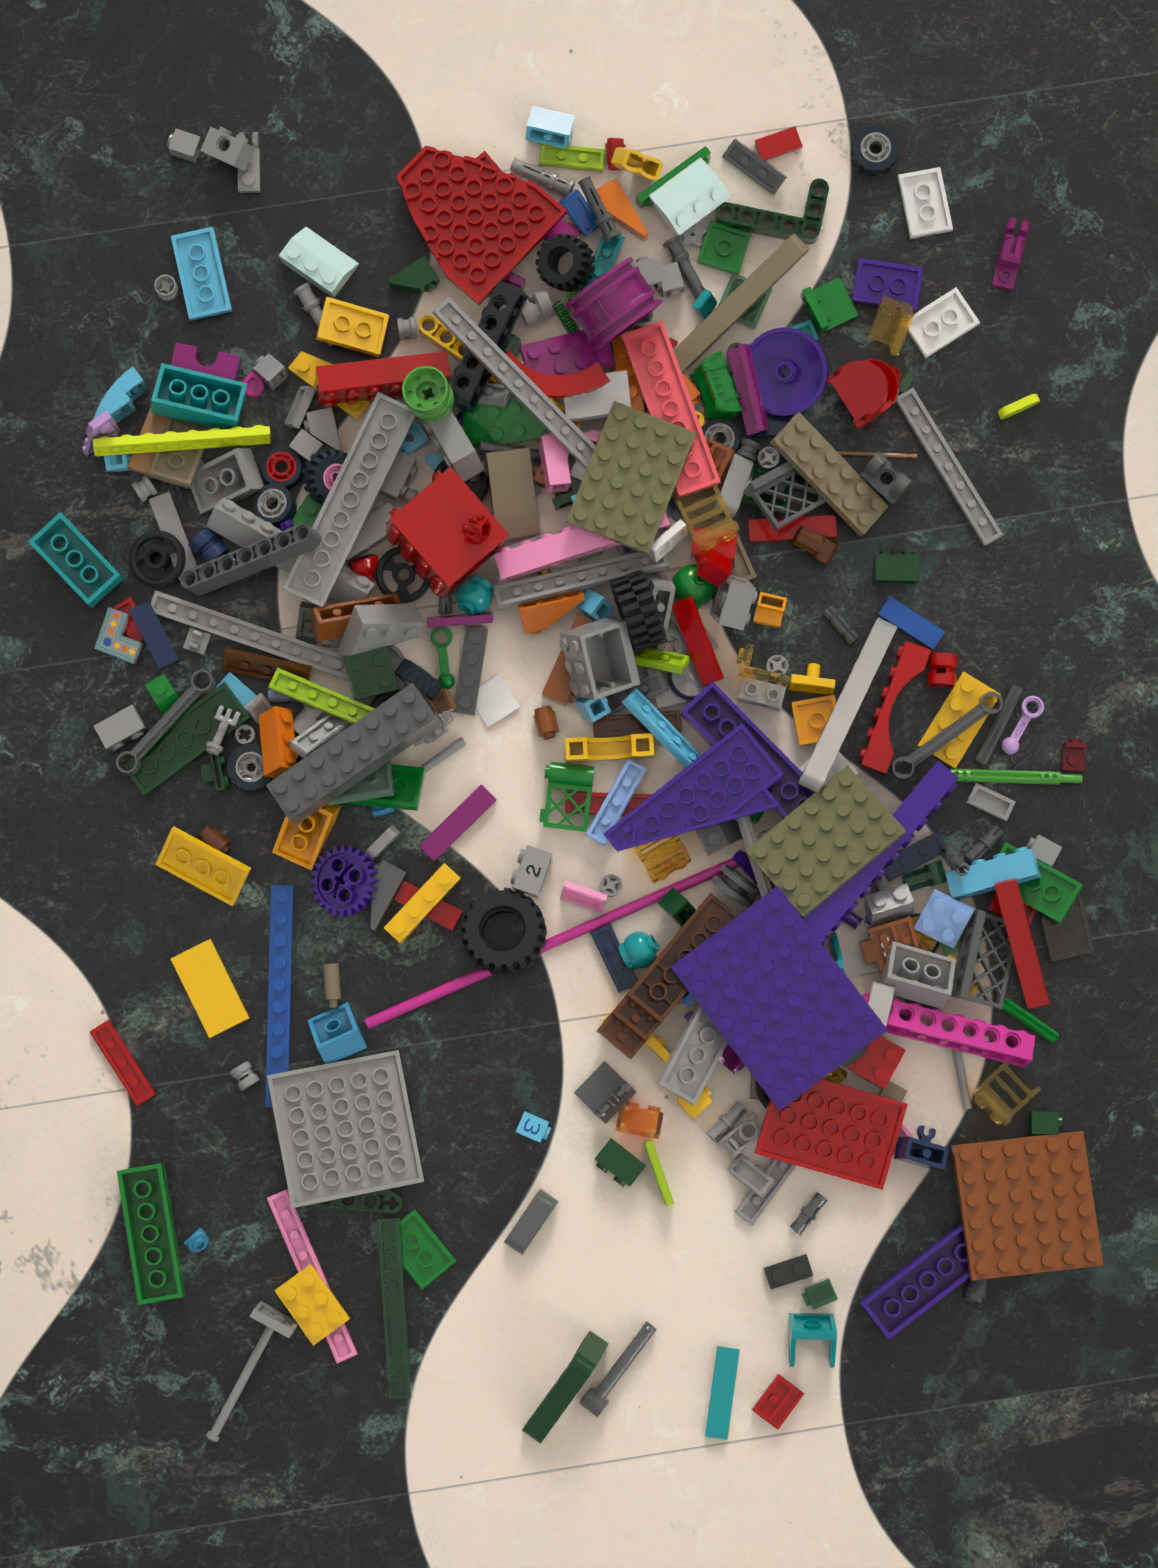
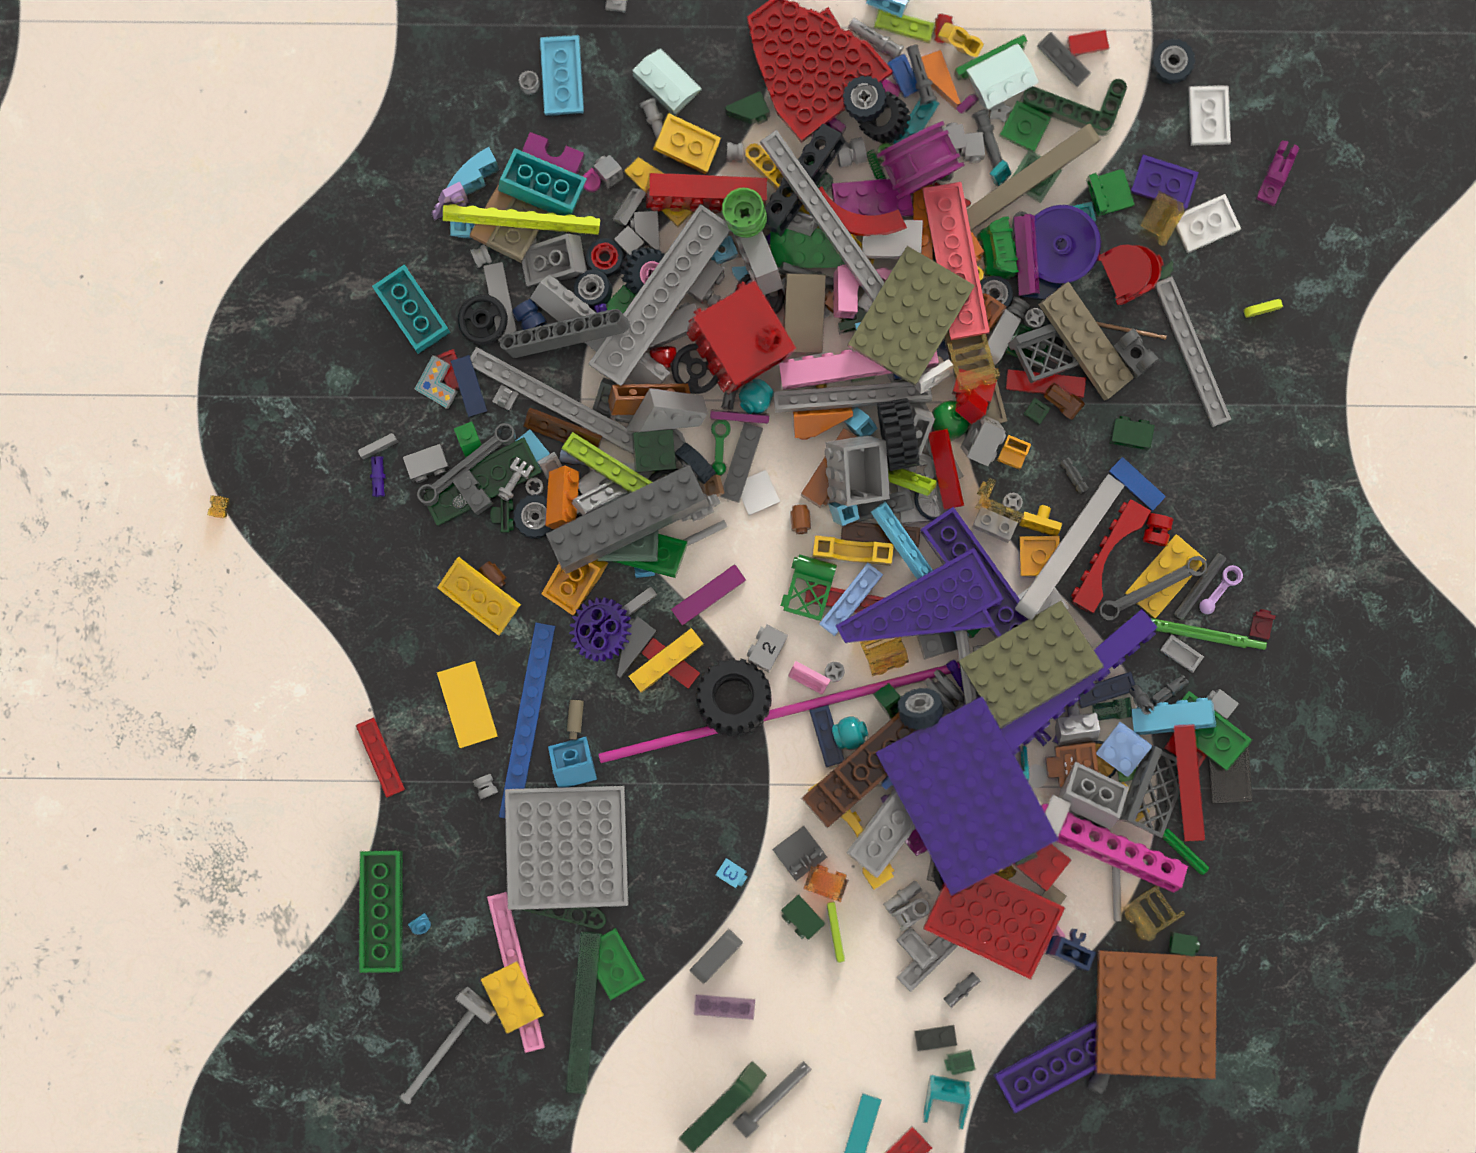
camera: 10 degrees right, 0 degrees up
(63, 718) = (377, 446): none -> light grey tile
(69, 752) = (377, 476): none -> dark purple pin
(174, 754) = (470, 494): none -> dark grey piece
(549, 1275) = (724, 1006): none -> clear purple plate
(552, 250) = (874, 103): none -> black wheel
(655, 233) = (967, 103): none -> magenta tile
(711, 910) = (920, 708): none -> black wheel
(787, 560) = (1036, 411): none -> dark green tile

